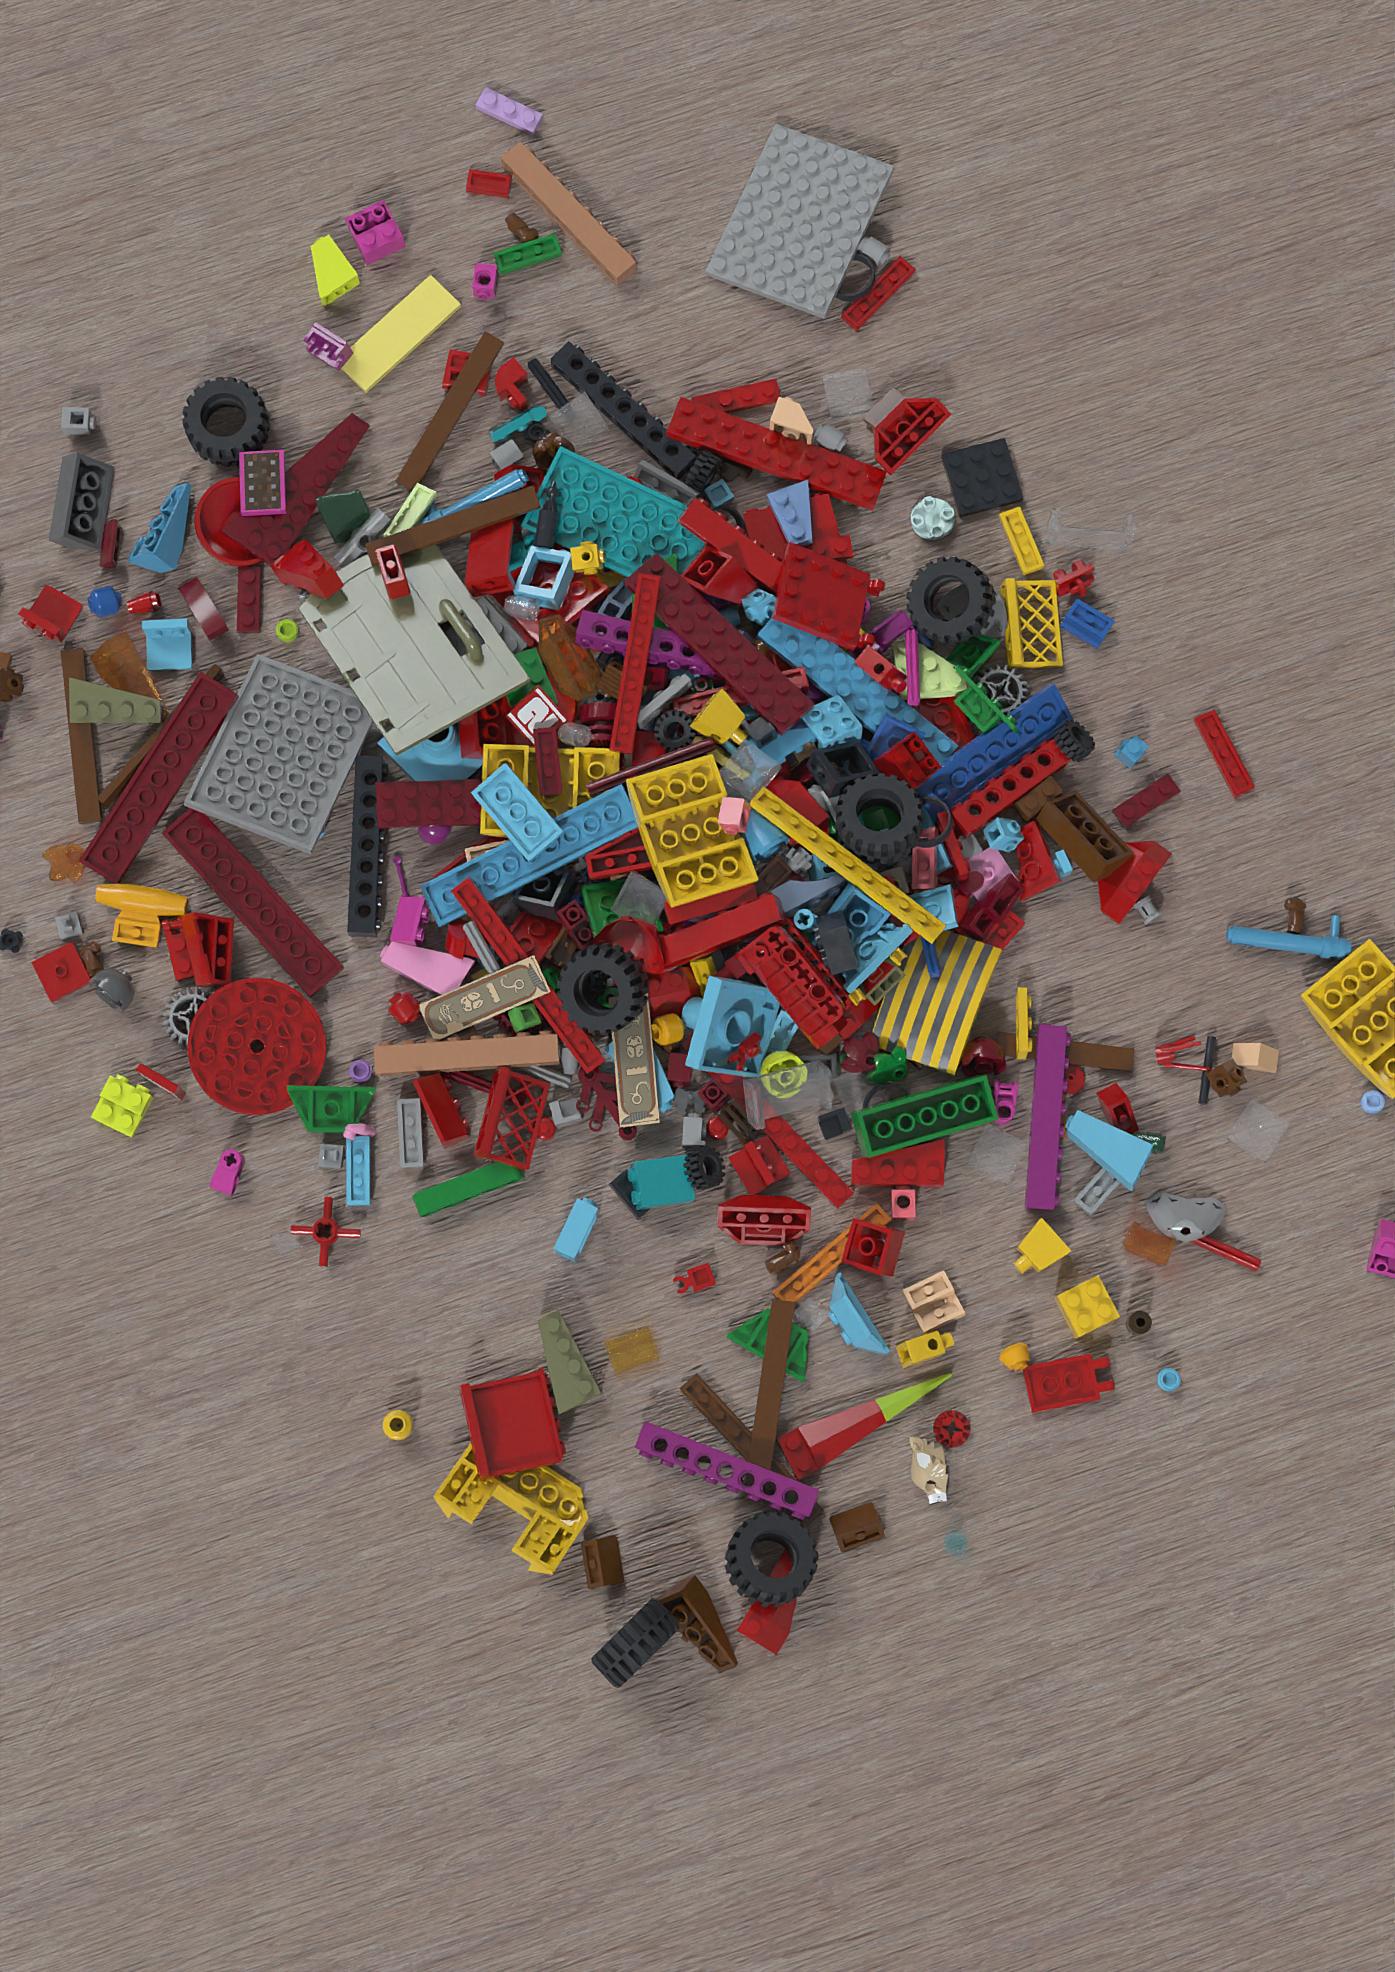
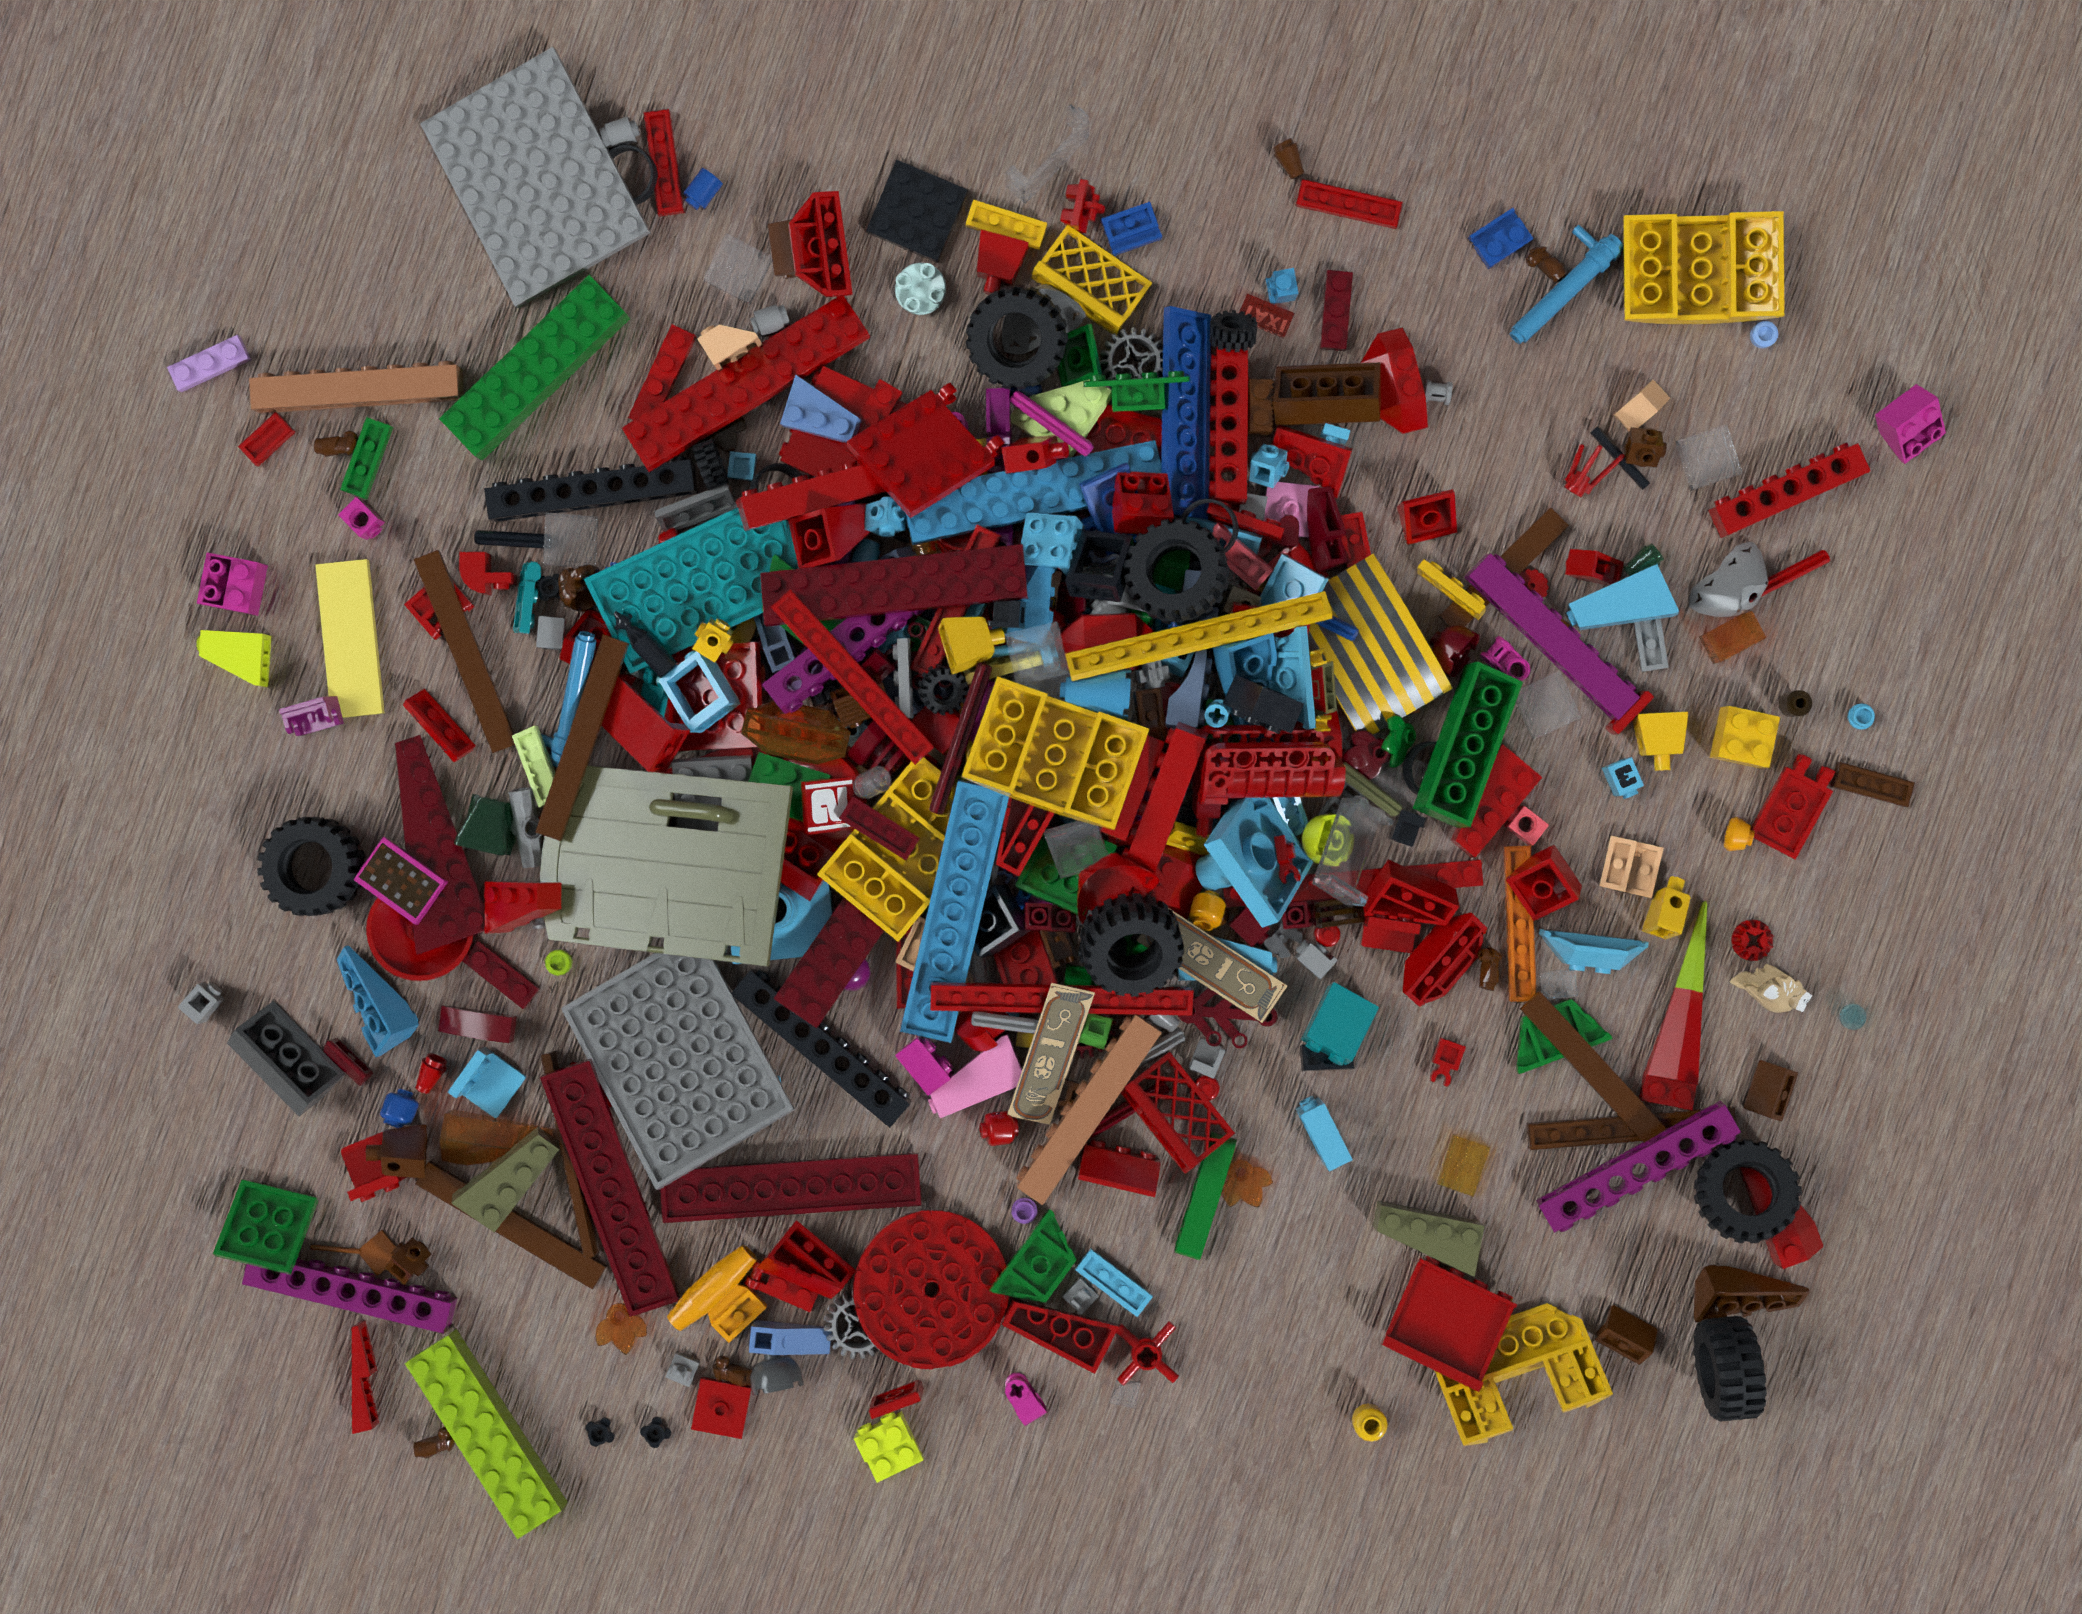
camera: 50 degrees left, 10 degrees up
(77, 622) = (401, 1152): none -> reddish brown torso
(146, 978) = (788, 1339): none -> medium blue slope
(297, 1167) = (1064, 1333): none -> red wedge
(362, 1129) = (1077, 1256): bright pink arm -> none
(386, 432) = (439, 725): none -> red plate
(392, 571) = (584, 829): red brick -> none
(397, 861) = (856, 1028): magenta hinge -> none
(410, 1133) = (1117, 1211): light grey plate -> none
(497, 1212) = (1247, 1186): none -> clear orange plate
(517, 812) = (908, 895): medium azure plate -> none
(521, 607) = (711, 735): clear brick -> none
(674, 314) = (534, 368): none -> green brick
(696, 1172) = (1364, 969): black tyre -> none
(734, 815) = (1073, 704): brick -> none
(789, 1157) = (1411, 895): none -> red wedge
(839, 1073) = (1372, 791): none -> olive axle
(880, 330) = (702, 189): none -> blue brick
(990, 1245) = (1623, 777): none -> medium azure brick
(995, 553) = (999, 259): none -> red torso
(1036, 1213) = (1616, 726): none -> red tile
(1059, 970) = (1428, 516): none -> red slope
(1104, 758) = (1267, 315): none -> clear red tile
(1128, 1426) = (1872, 784): none -> reddish brown tile
(1220, 690) = (1289, 158): none -> reddish brown cone
(1286, 872) = (1500, 238): none -> blue plate
(1337, 1221) = (1851, 464): none -> red brick

